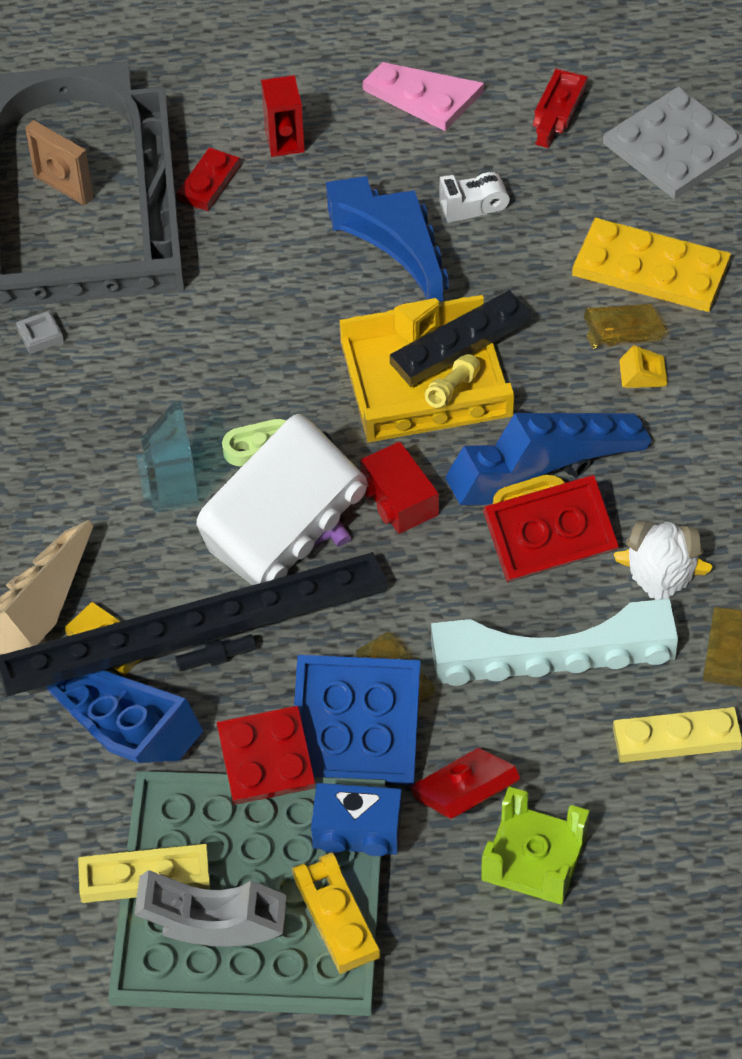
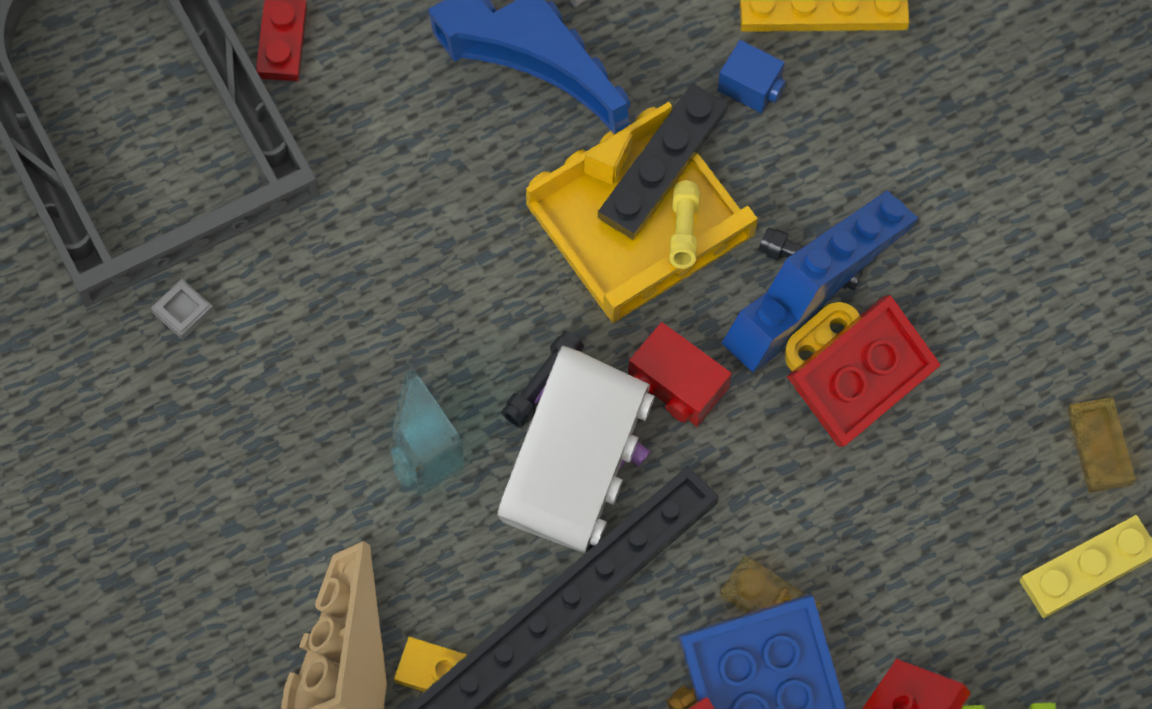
camera: 25 degrees left, 15 degrees up
(59, 163) = (108, 84): medium nougat tile -> none
(215, 652) = (570, 648): black bar -> none
(248, 438) = (497, 368): yellowish green plate -> none
(474, 652) = (845, 548): light aqua arch -> none
(560, 302) = (752, 77): none -> blue brick
(622, 324) = (830, 84): clear yellow plate -> none
(642, 368) = (868, 129): yellow slope -> none
(663, 557) = (993, 362): white hair -> none

